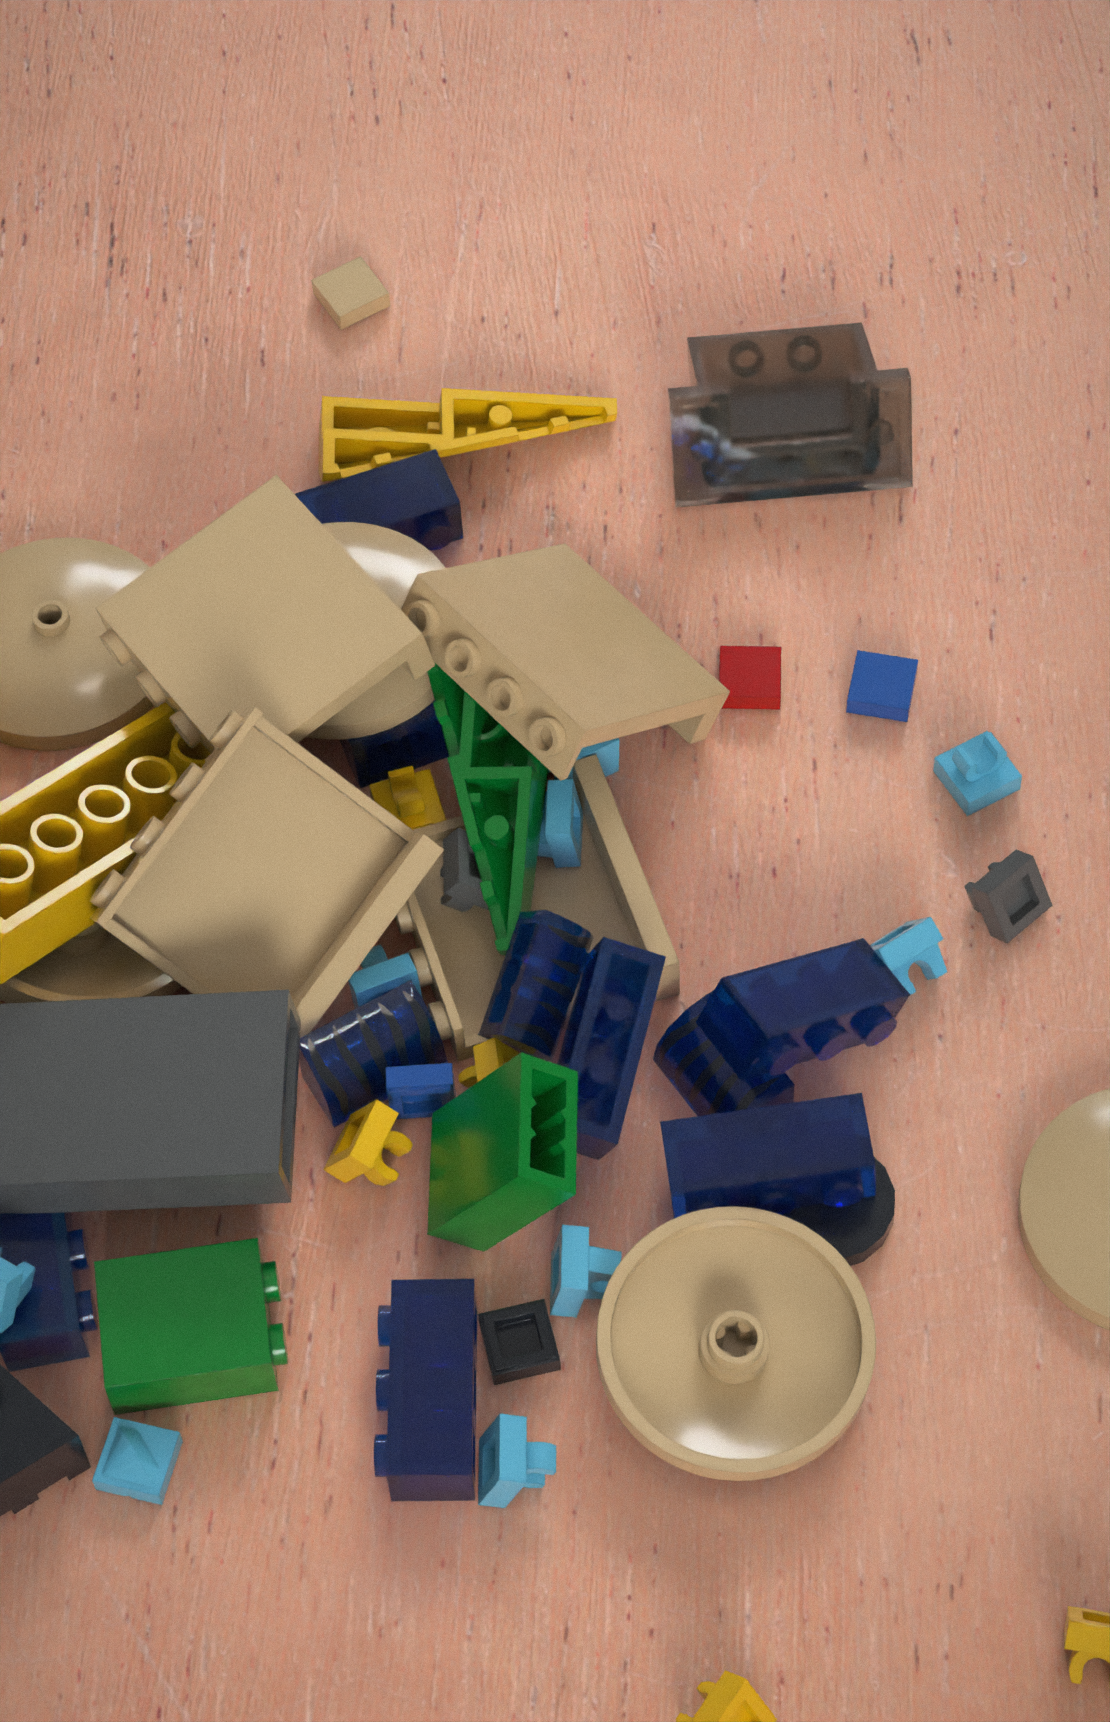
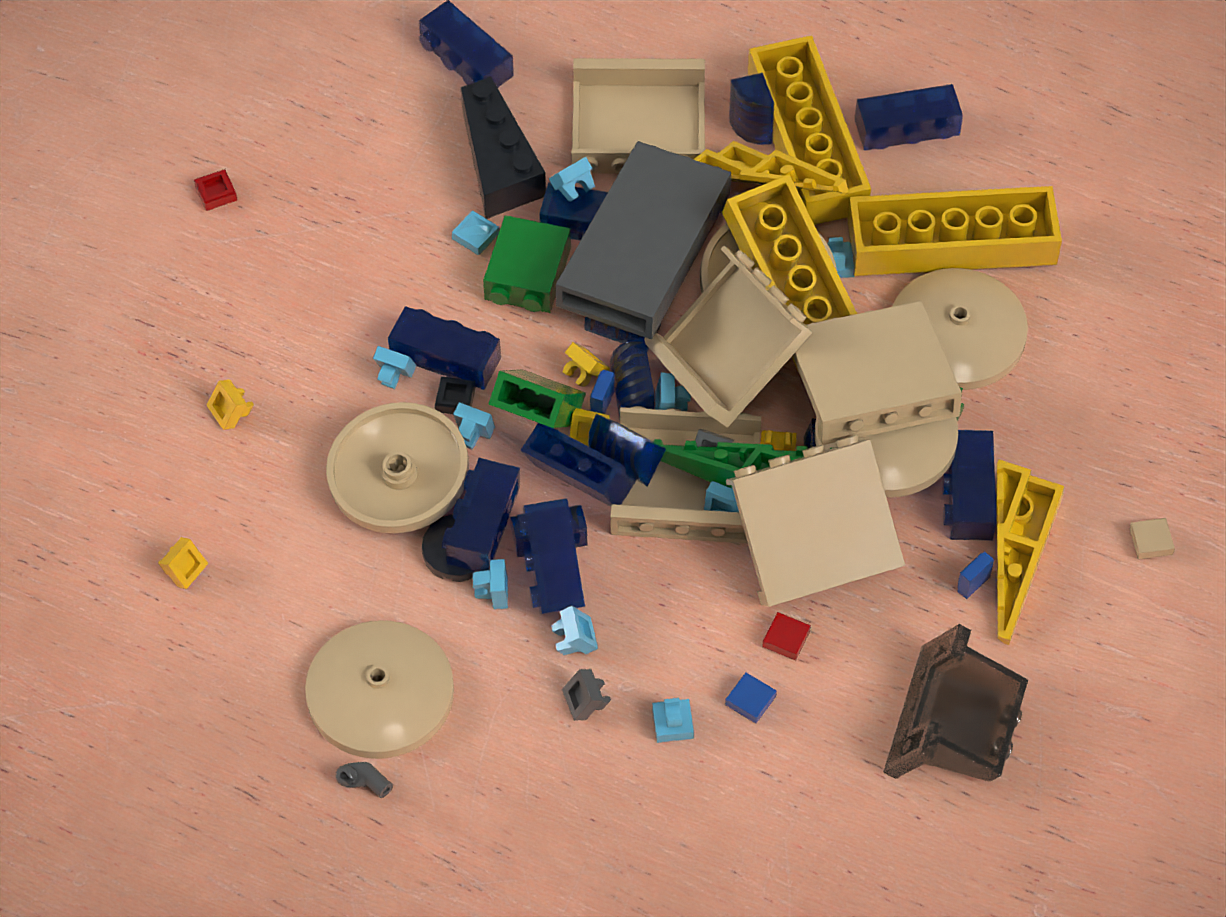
camera: 110 degrees right, 0 degrees up
(527, 467) = (975, 574): none -> blue tile
(885, 1101) = (493, 584): none -> medium azure tile

